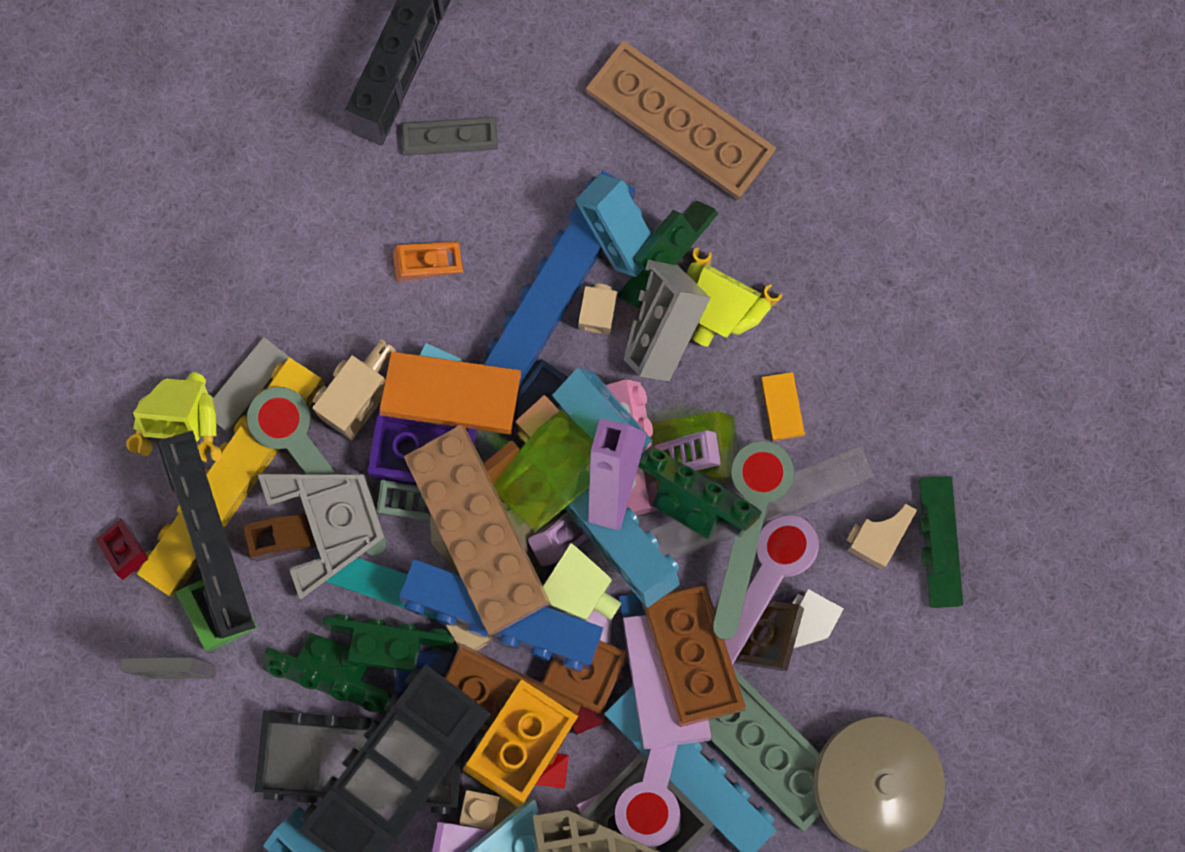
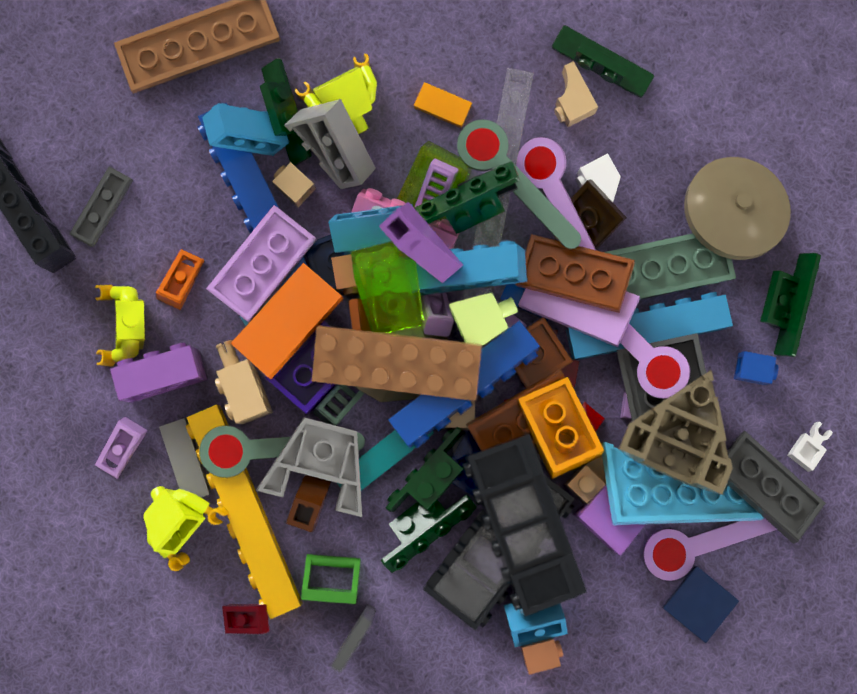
camera: 55 degrees left, 5 degrees up
(220, 312) = (121, 446): none -> lavender slope
(222, 582) = (249, 545): black window -> none
(316, 300) = (158, 373): none -> medium lavender brick
(348, 237) = (128, 323): none -> neon yellow torso
(493, 330) = (261, 263): none -> lavender tile

